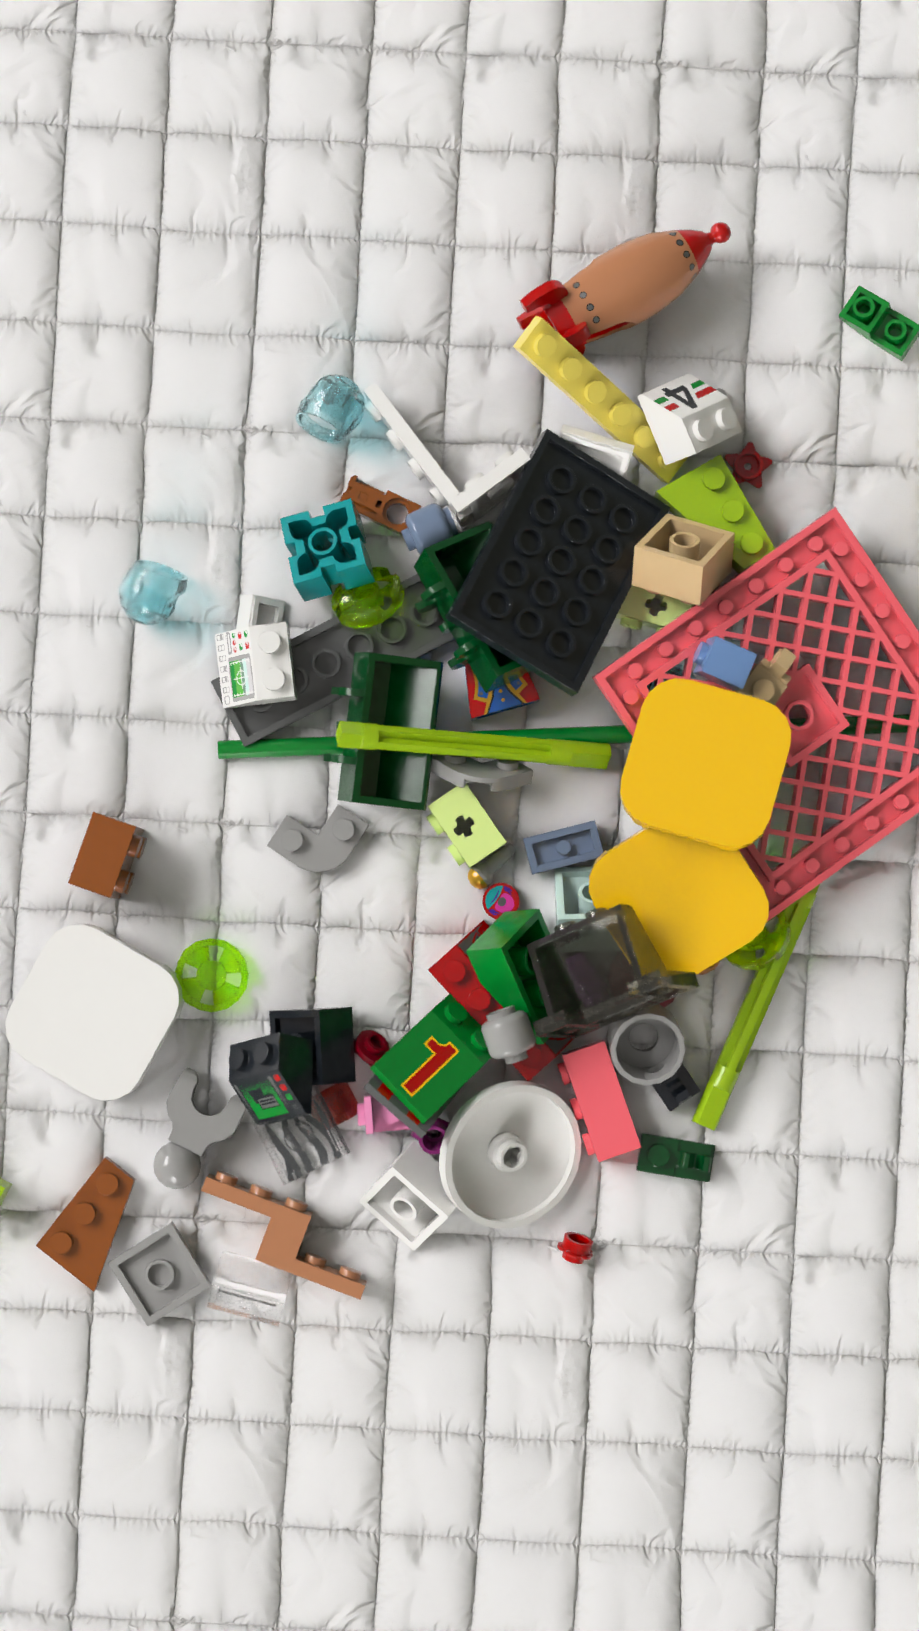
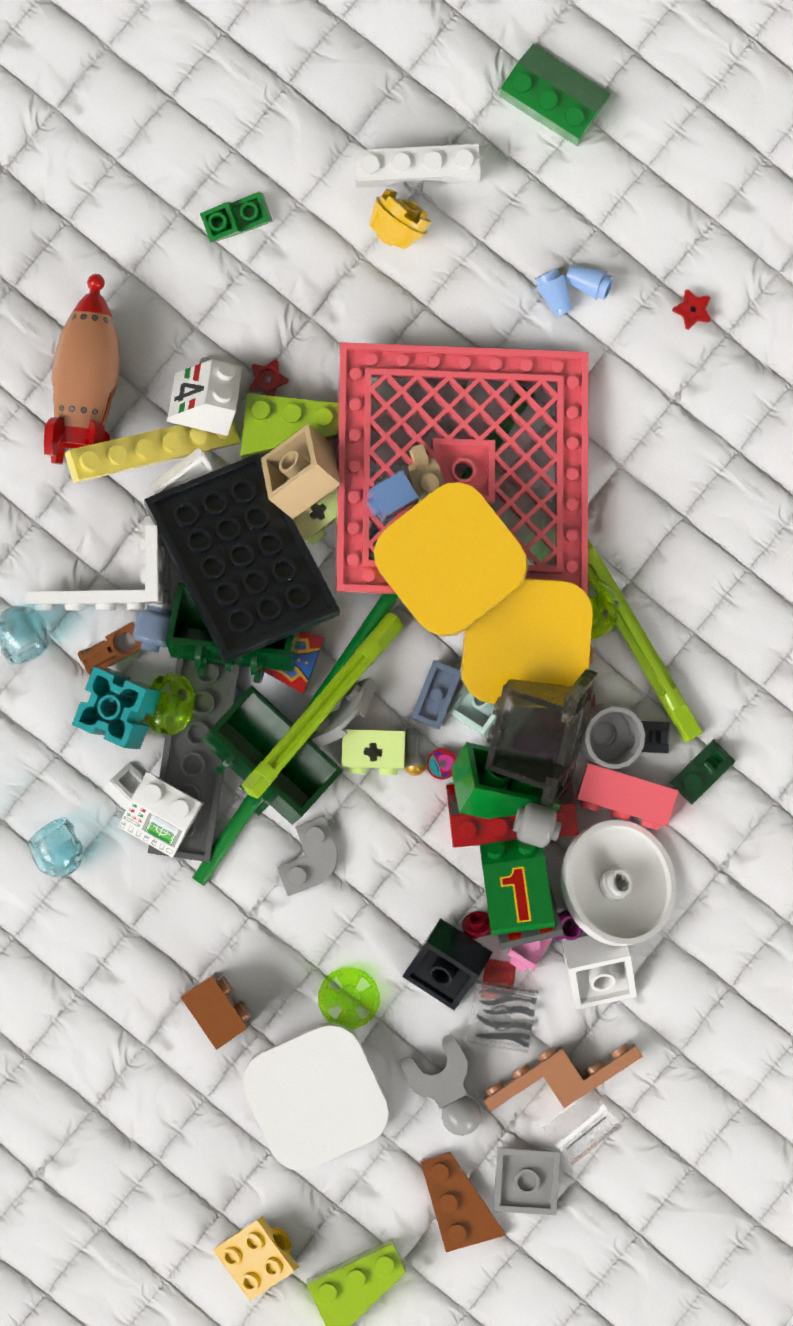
camera: 55 degrees left, 0 degrees up
(273, 1076) = (449, 1005): black slope -> none
(576, 1247) = (714, 884): red plate -> none

